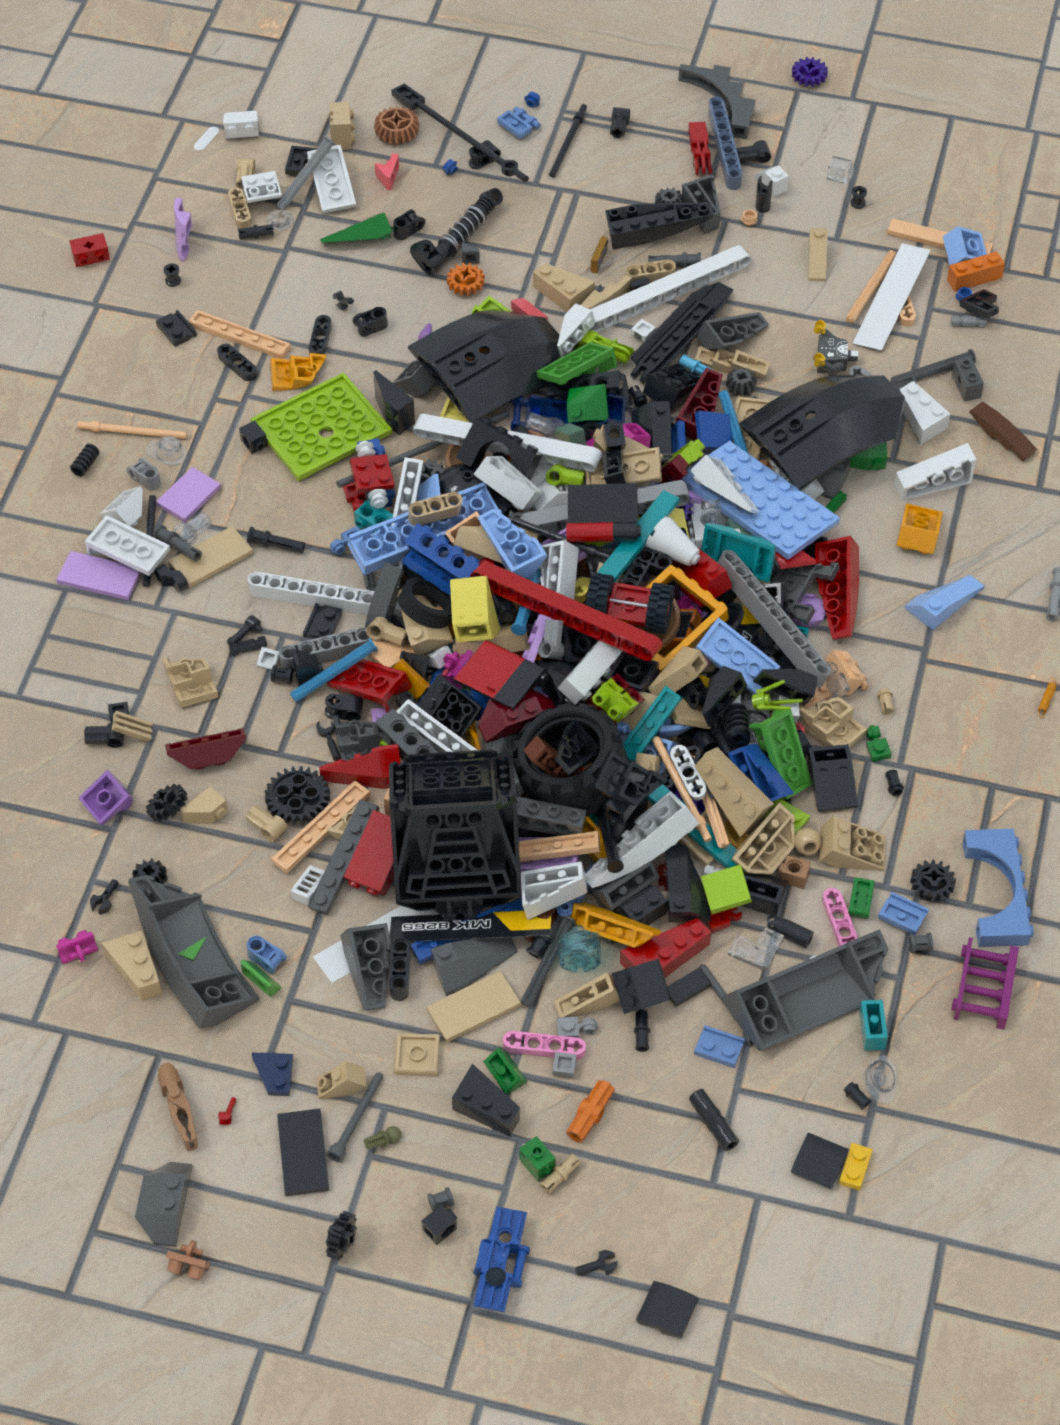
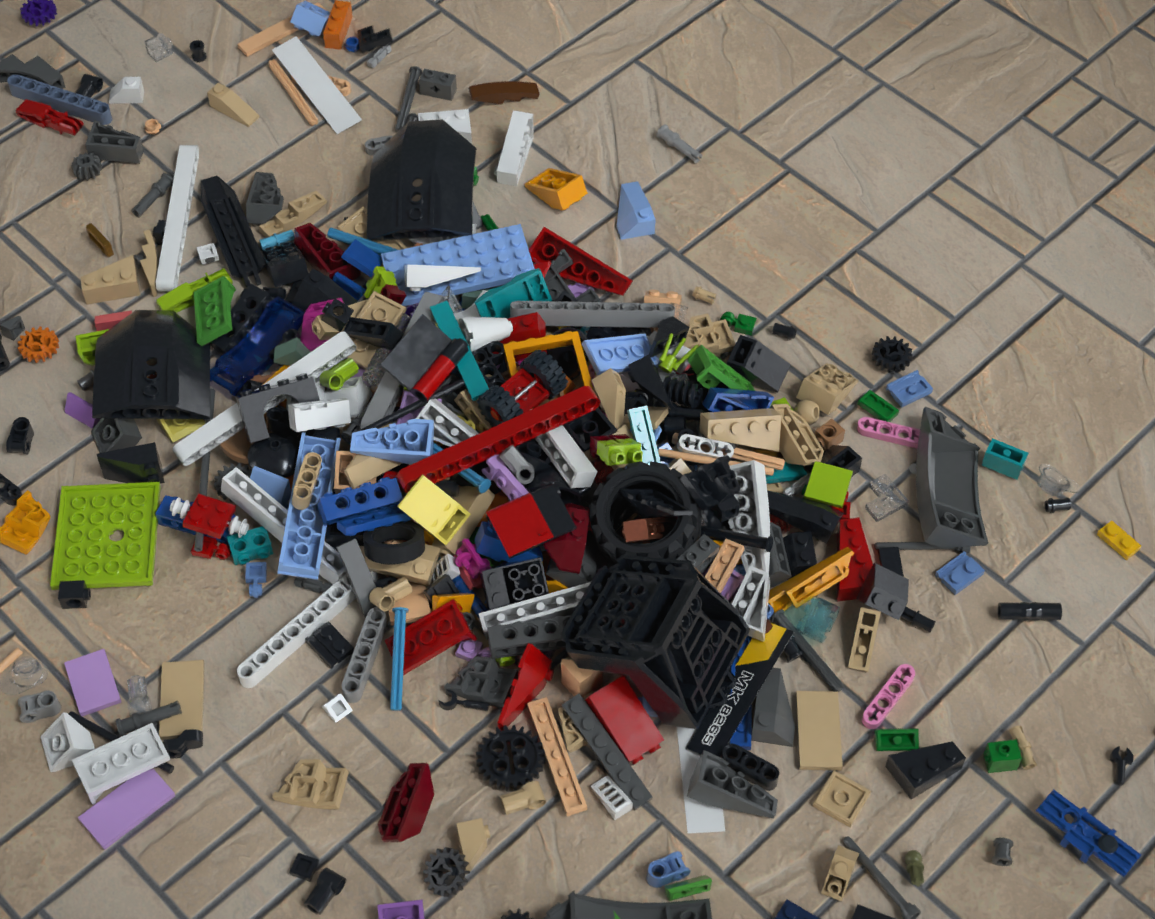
camera: 60 degrees left, 0 degrees up
(131, 724) = (331, 861): tan tile -> none
(247, 645) = (309, 717): black axle -> none
(251, 624) = (289, 702): black piece -> none
(266, 539) = (202, 640): black pin -> none
(282, 674) = (366, 704): black bush -> none
(305, 666) = (377, 681): black slope -> none
(345, 706) = (439, 673): black piece -> none
(439, 1224) = (1027, 864): black brick -> none
(543, 425) = (260, 367): clear piece -> none
(564, 1064) = (918, 690): light grey plate -> none
(569, 1026) = (883, 669): light grey plate -> none
(574, 327) = (167, 289): white slope -> none
(587, 404) = (262, 326): green slope -> none
(590, 1111) = (974, 694): orange piece -> none
(651, 270) = (156, 210): tan beam -> none
(653, 221) = (102, 185): black wedge -> none
(741, 382) = (320, 217): dark grey gear -> none
(763, 196) = (144, 104): black piece -> none
(791, 930) = (883, 466): black piece -> none
(819, 1160) = (1103, 560): black slope -> none
(832, 351) = (339, 148): dark grey torso -> none
(921, 942) = (944, 388): dark grey bush -> none
(1000, 849) = (893, 299): medium blue arch -> none
(1005, 977) = (1011, 358): magenta fence -> none
(1047, 697) = (767, 200): light orange piece -> none

